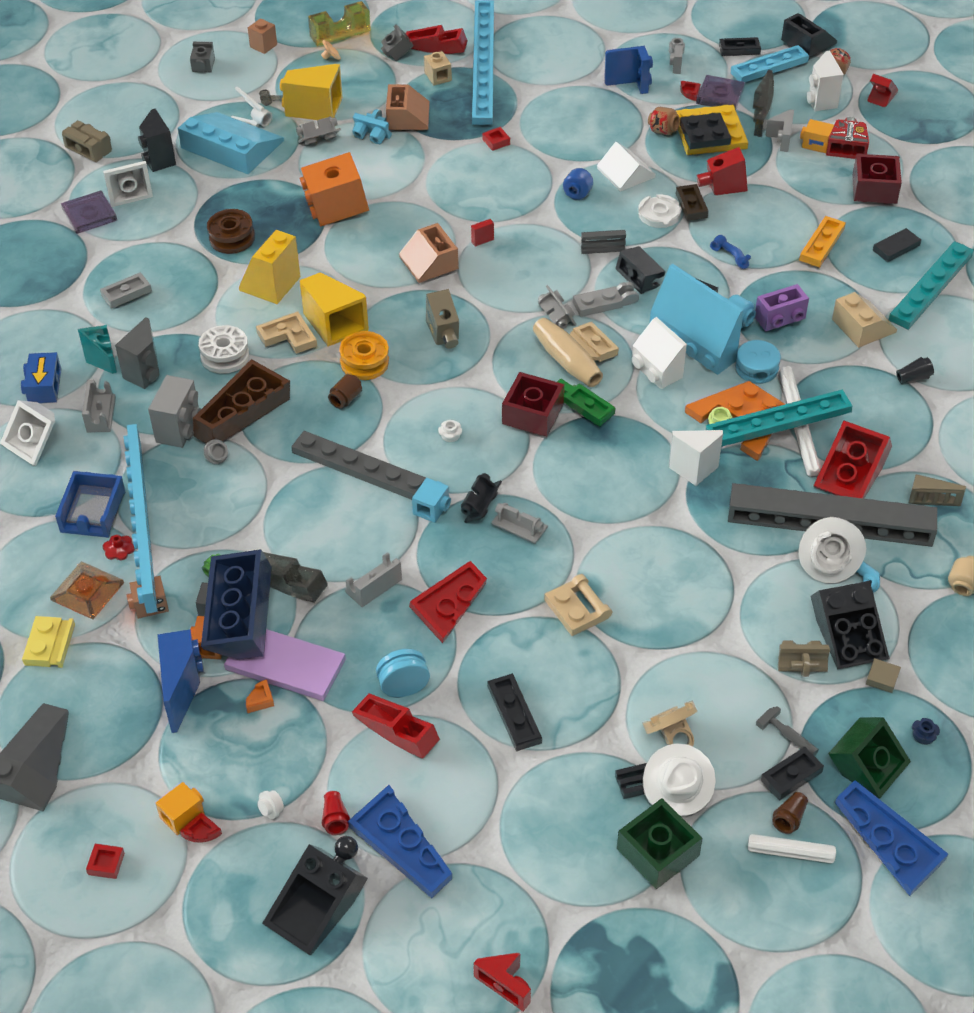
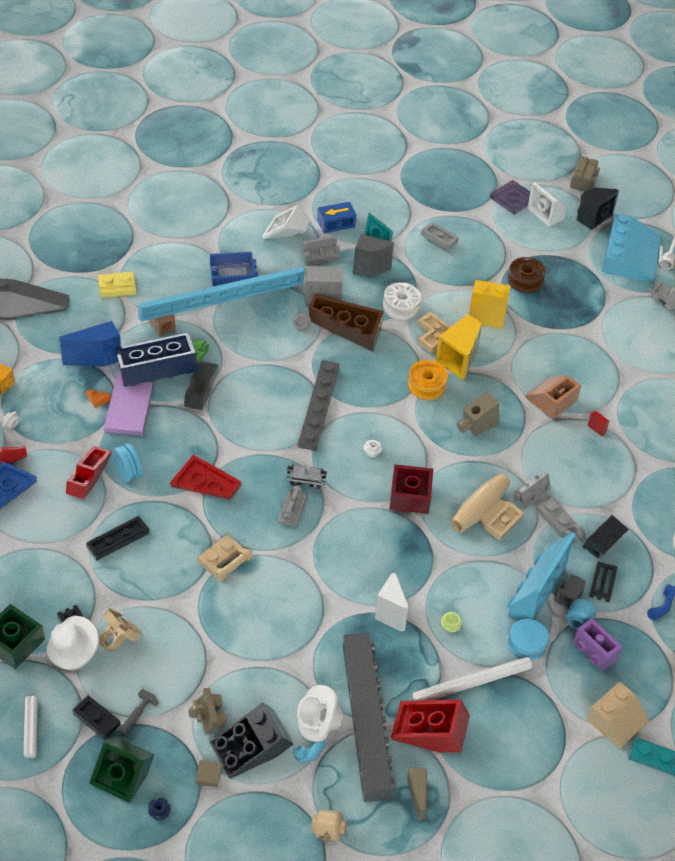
camera: 70 degrees right, 0 degrees up
(87, 590) = (160, 287): clear orange slope -> none
(333, 189) = (593, 317): orange brick -> none
(345, 391) = (386, 377): reddish brown brick -> none
(375, 581) = (210, 434): light grey hinge -> none
(431, 500) = (295, 448): medium azure brick -> none
(587, 403) = (432, 526): green hinge -> none
(600, 243) = (627, 505): dark grey tile -> none
(660, 354) = (498, 564): white slope -> none
(739, 400) = (471, 646): orange wing -> none
(783, 417) = (458, 659): teal plate -> none
(790, 813) = (60, 720): reddish brown cone -> none
(896, 842) = (46, 797): blue wing -> none
(917, 370) = (569, 767): black cone -> none

